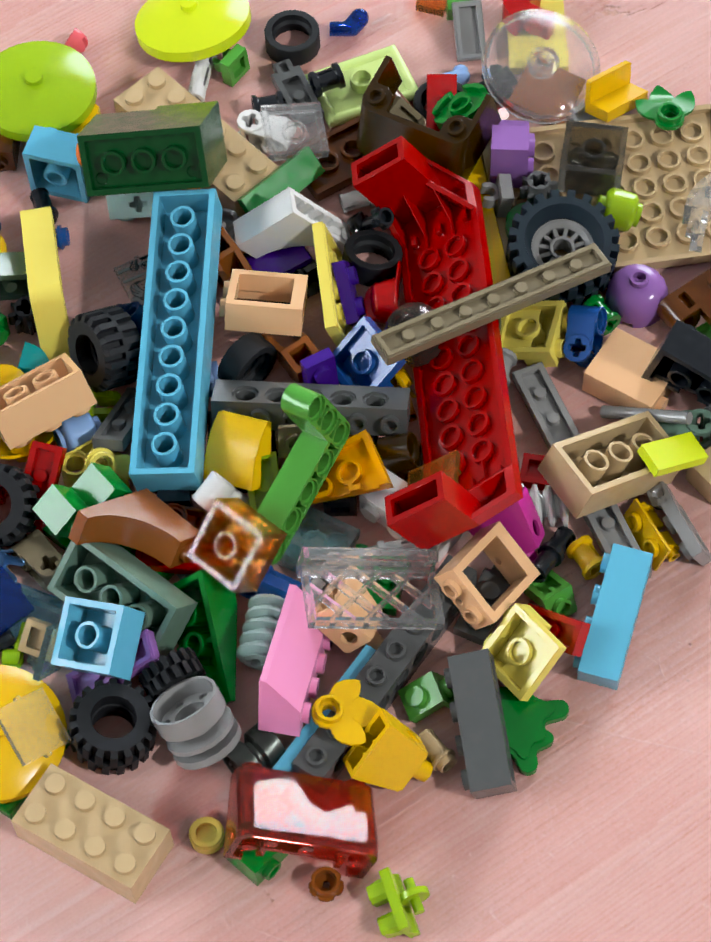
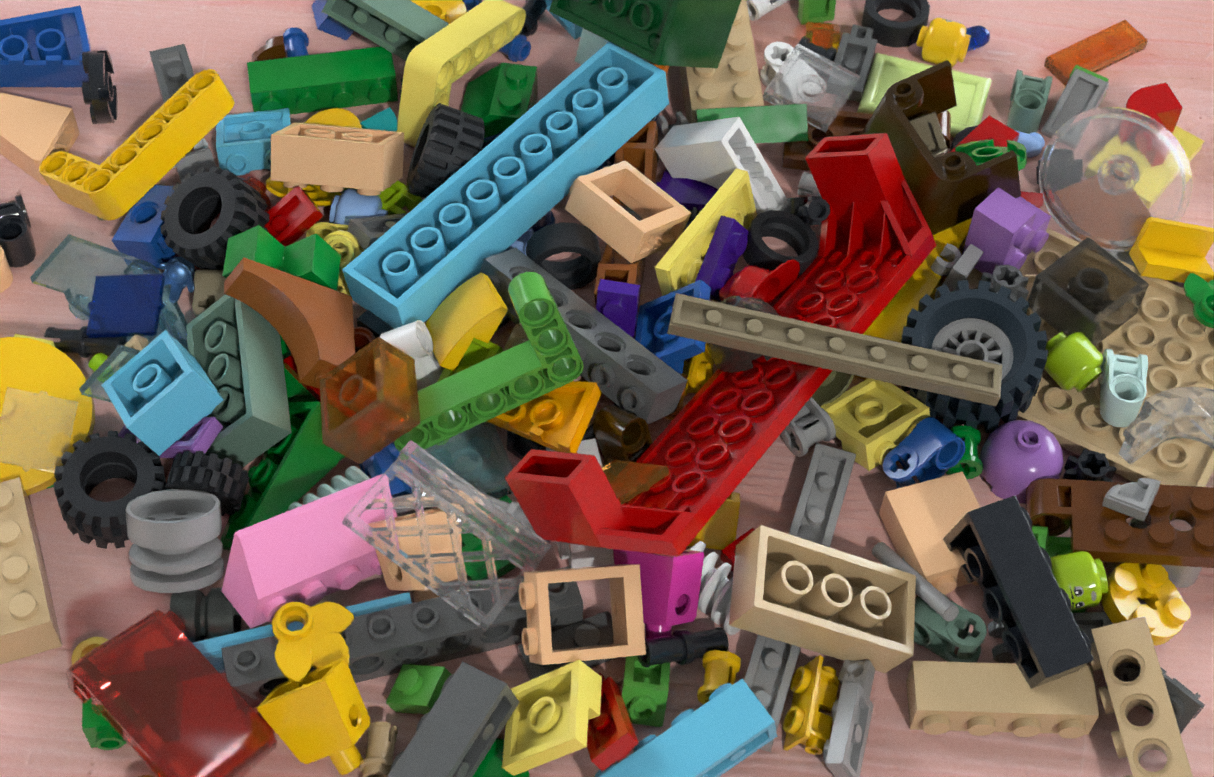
camera: 35 degrees right, 5 degrees down
(93, 282) = (501, 96): none -> green slope
(256, 84) = (823, 34): none -> clear orange slope
(326, 79) = (888, 64): black bush -> none
(344, 38) = (943, 41): none -> yellow head
(433, 45) = (1028, 102): none -> sand green piece
(660, 205) = (1122, 387): none -> light aqua piece
(672, 454) = (896, 636): neon yellow tile -> none
(680, 272) = (1089, 467): none -> black gear

